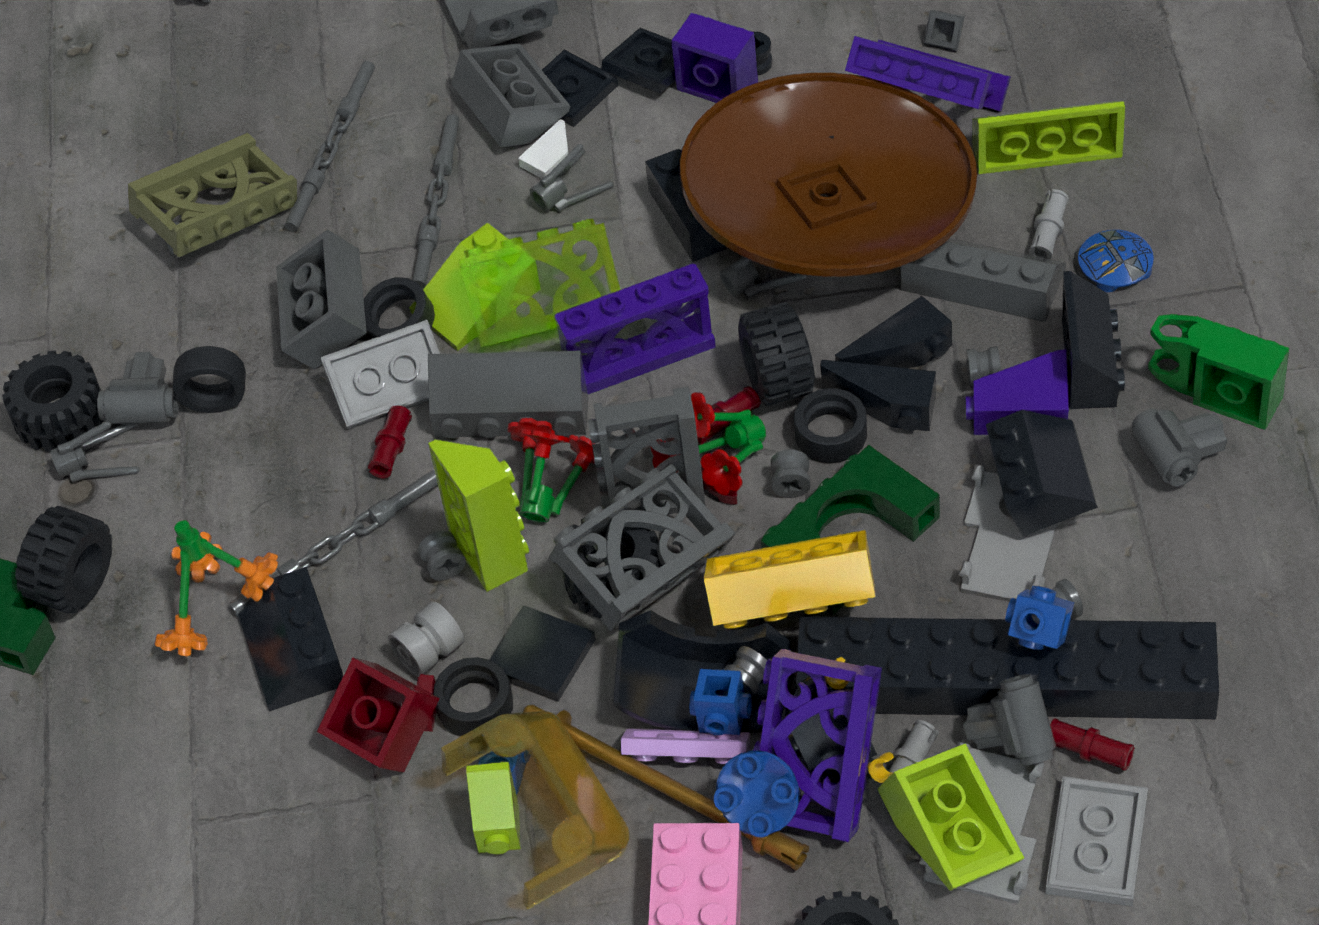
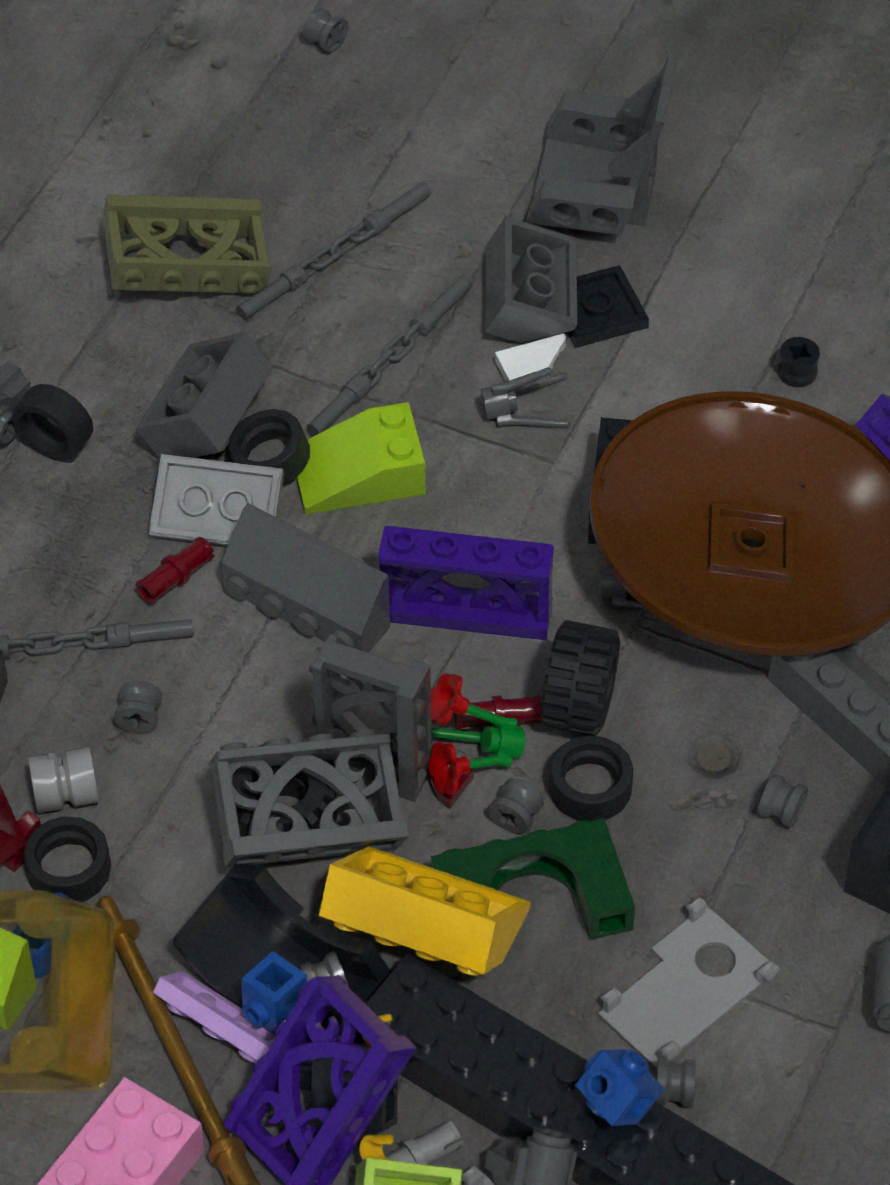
camera: 25 degrees right, 0 degrees up
(481, 510) = (181, 685): lime slope -> none
(507, 323) = (361, 509): clear neon green fence -> none
(537, 438) = (263, 701): plant -> none
(542, 652) = (162, 852): black tile -> none
(644, 60) = (692, 317): black tile -> none
(713, 58) = (746, 346): dark purple brick -> none
(757, 792) = (234, 1103): blue dish -> none
(889, 394) = (674, 782): black slope -> none
(904, 339) = (719, 731): black slope -> none
(1029, 386) = (794, 854): dark purple slope -> none
(1040, 469) = (751, 935): black slope -> none

